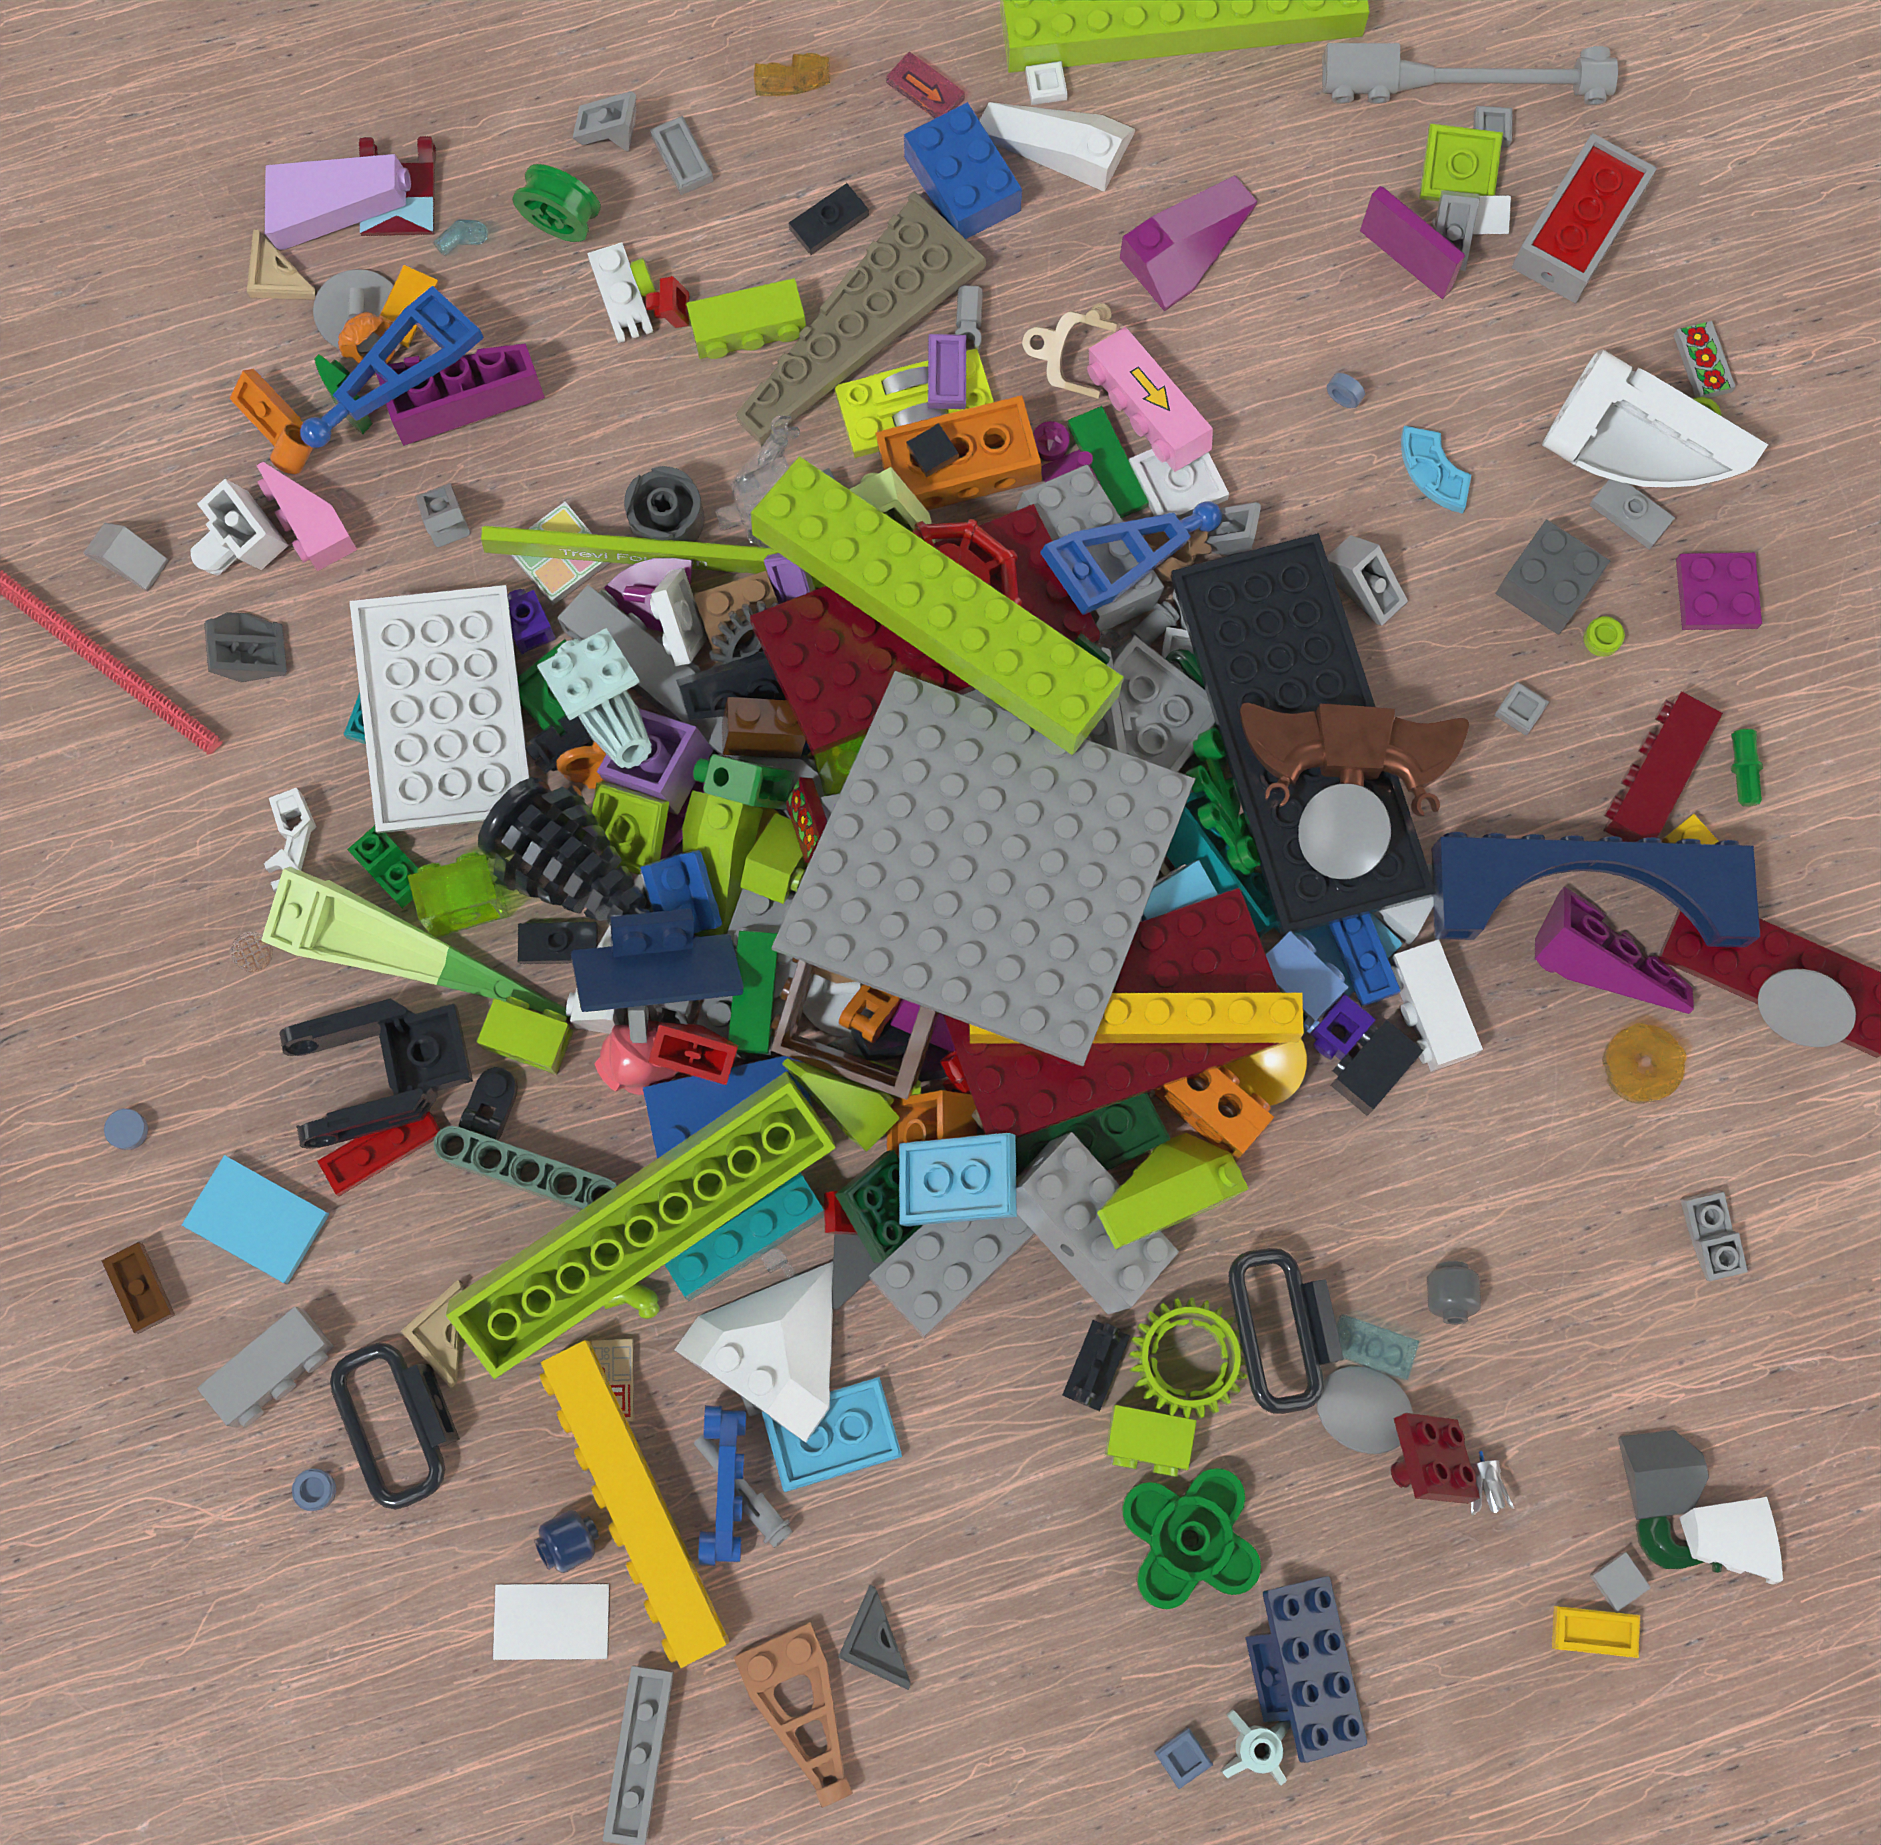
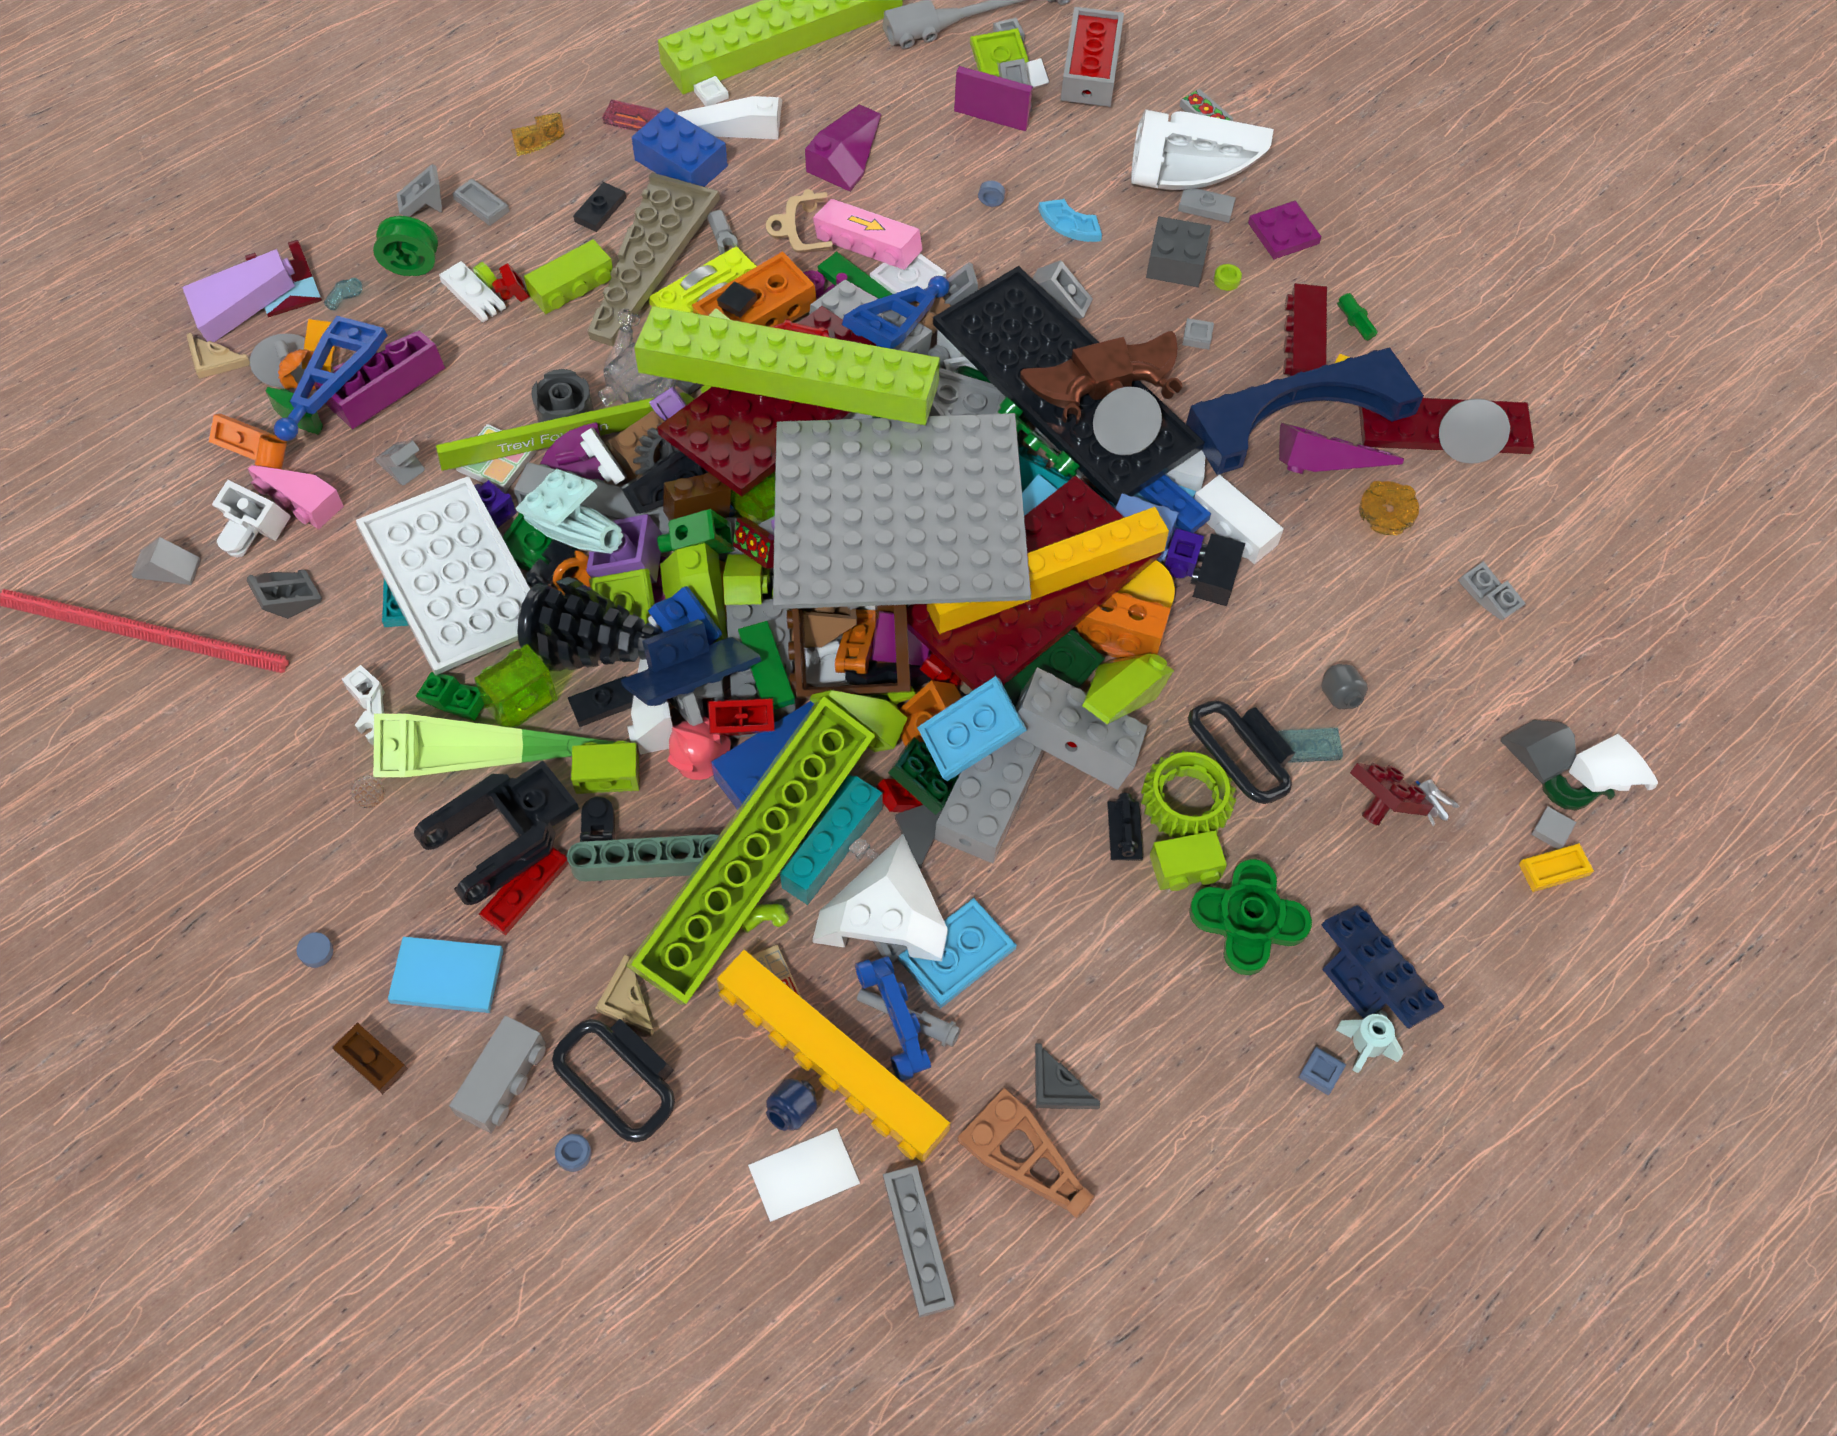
camera: 25 degrees left, 15 degrees down
(946, 371) = (722, 260): medium lavender tile -> none
(1360, 1409) = (1325, 783): light grey shield -> none

